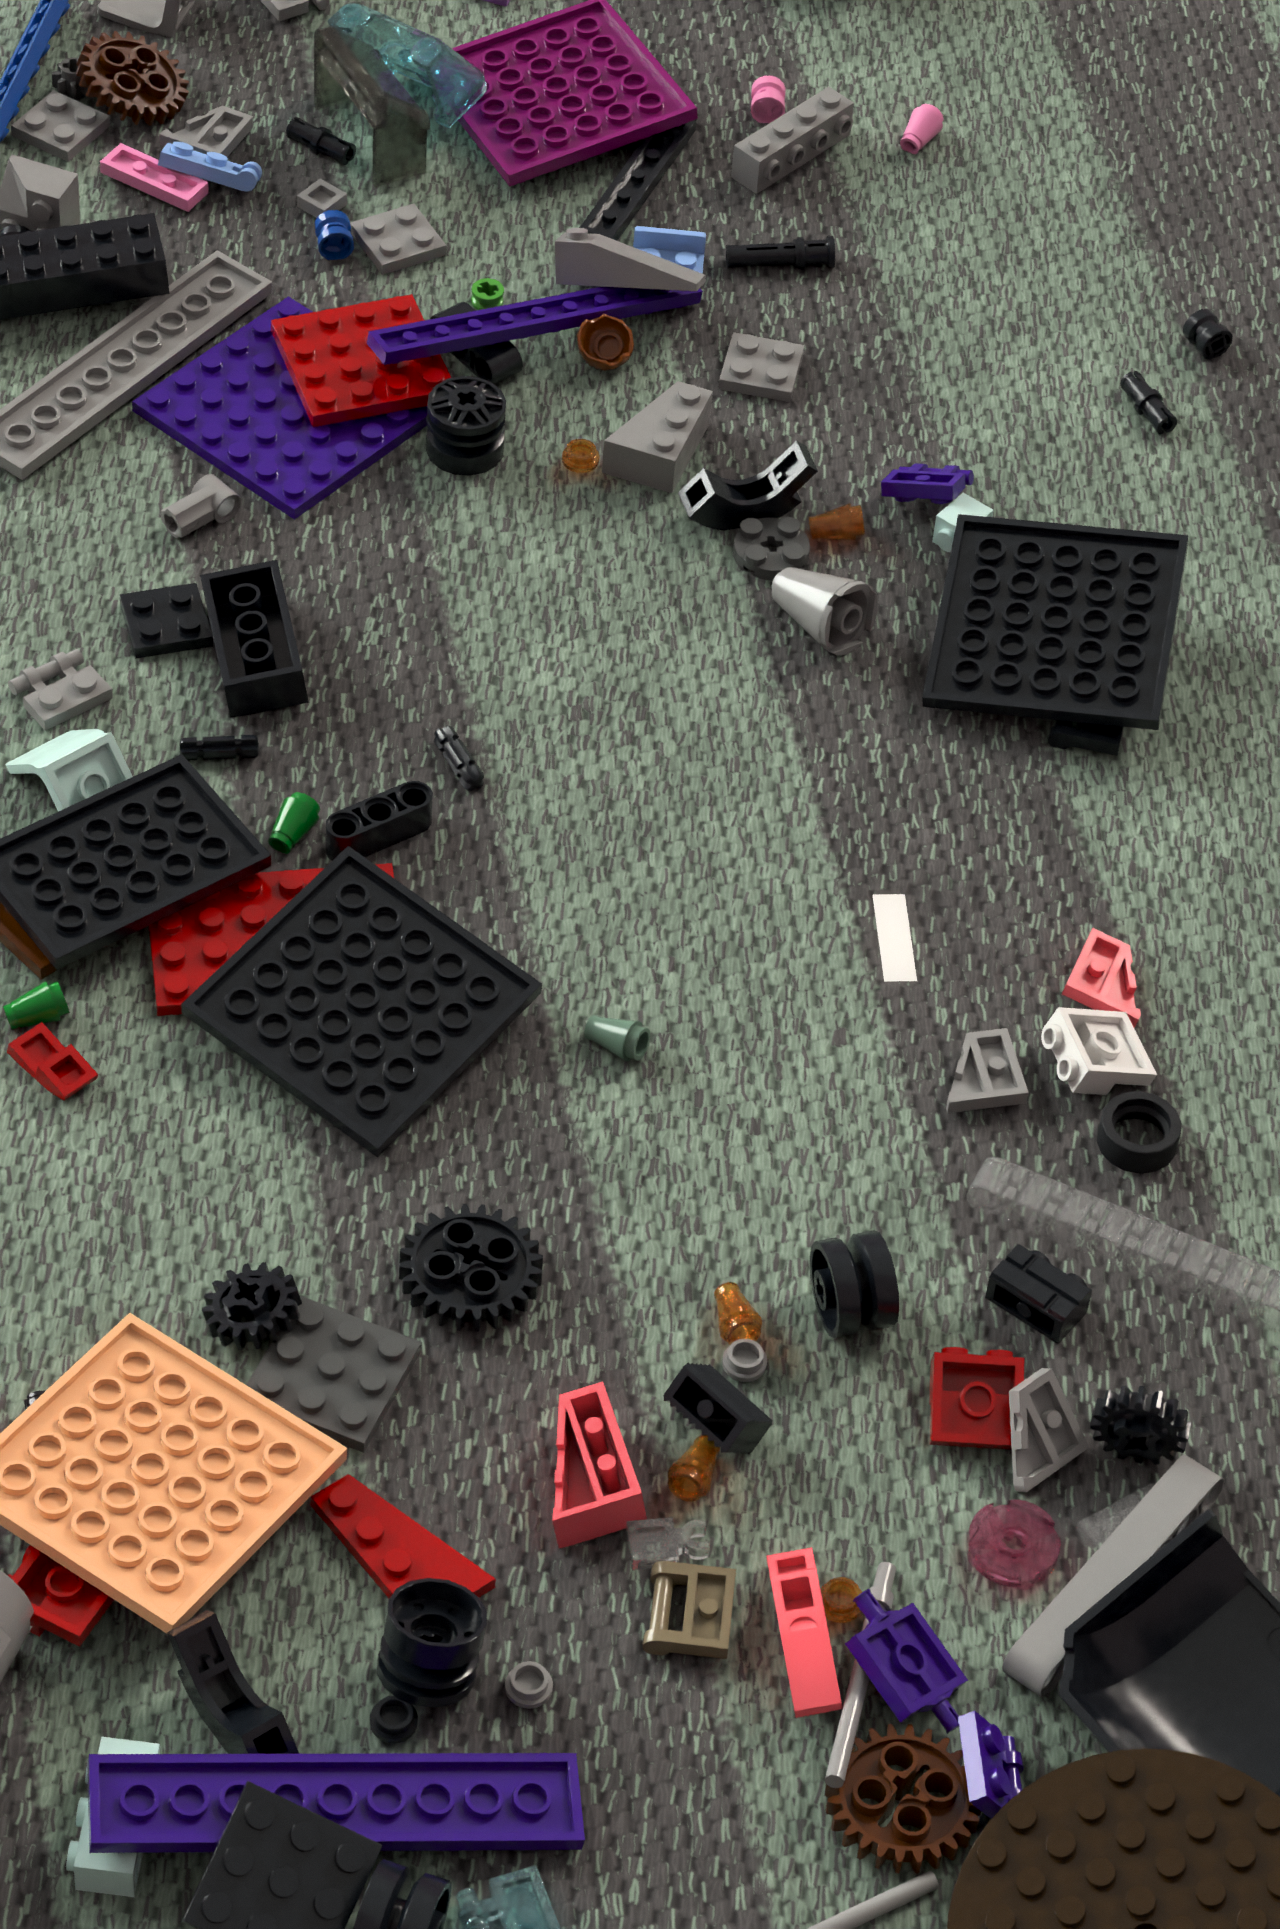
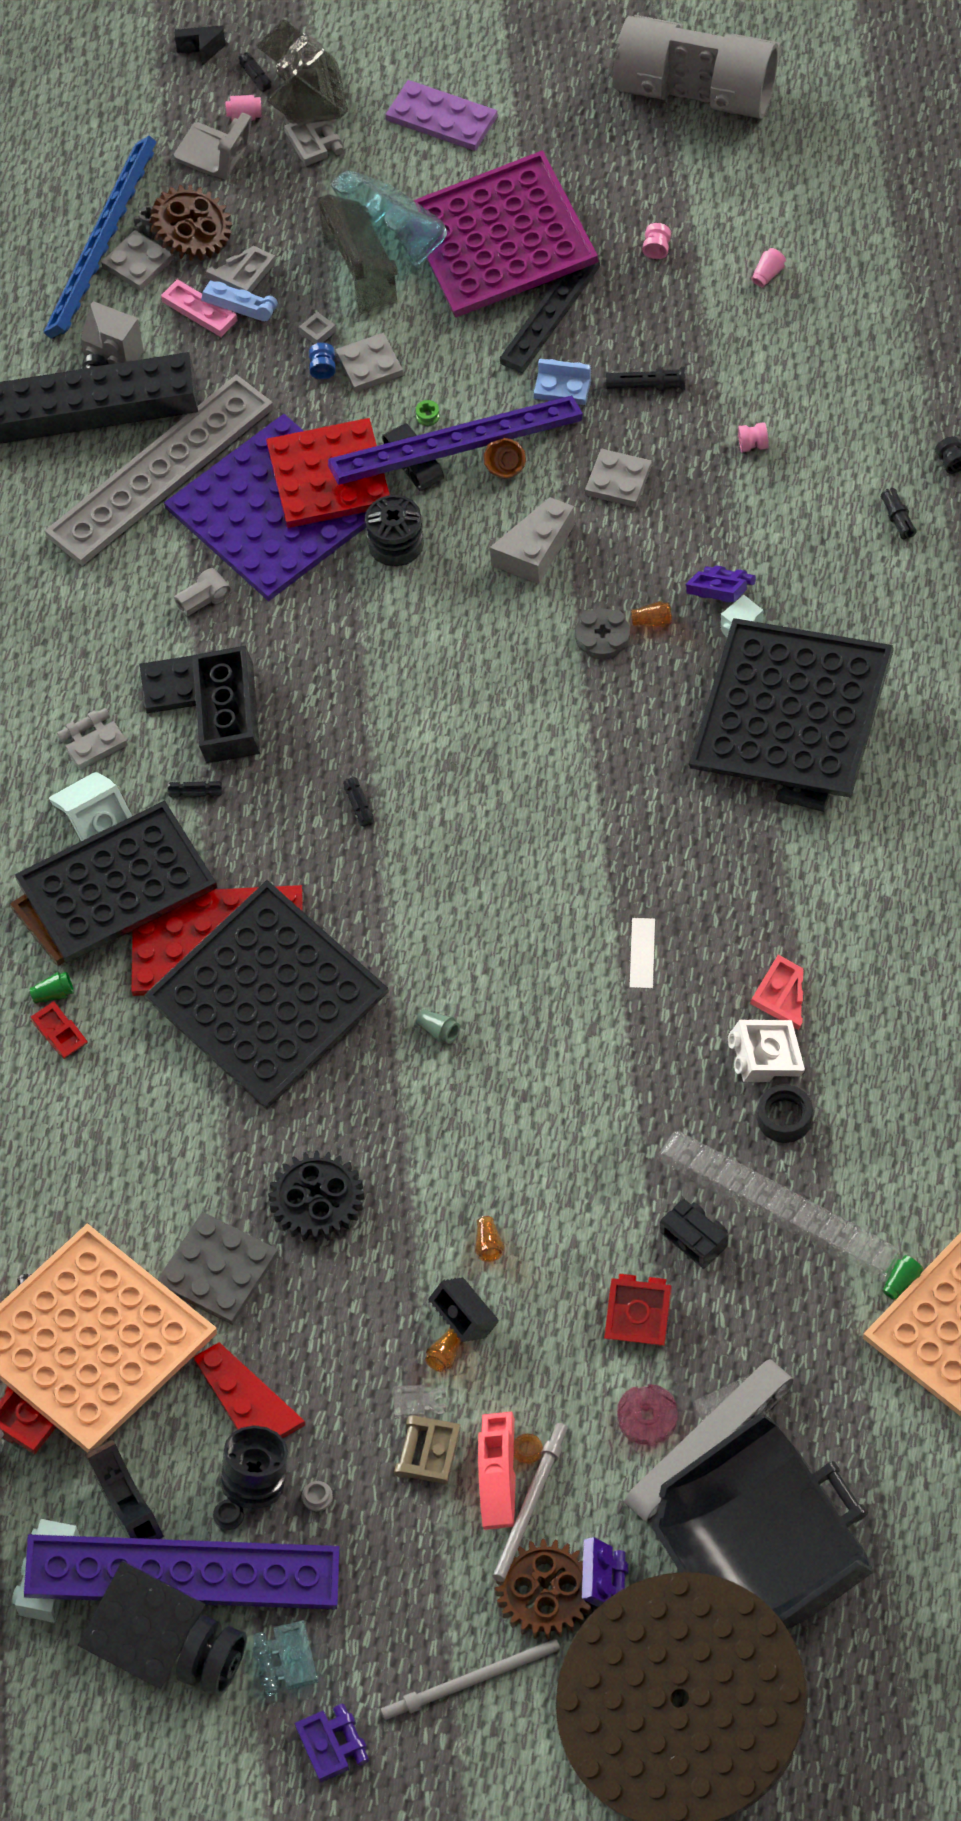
camera: 15 degrees right, 10 degrees up
(252, 1306) = (182, 1213): black gear -> none
(294, 821) = (238, 851): green cone -> none
(320, 140) = (323, 275): black pin -> none
(380, 820) = (304, 843): black beam -> none
(580, 456) = (476, 554): clear orange plate -> none
(593, 1472) = (376, 1349): coral wedge -> none
(609, 263) = (512, 394): light grey wedge -> none
(744, 1360) = (489, 1273): light grey plate -> none
(770, 494) = (573, 597): black arch -> none
(792, 140) = (668, 278): light grey brick -> none
(827, 606) = (631, 688): light grey cone -> none
(854, 1283) = (565, 1224): black wheel -> none
(906, 1661) = (559, 1496): dark purple plate -> none
(937, 316) = (753, 437): none -> bright pink wheel
(987, 1073) = (686, 1064): light grey wing -> none
(1041, 1430) = (677, 1336): light grey wing -> none
(1140, 1425) = (742, 1337): black gear -> none

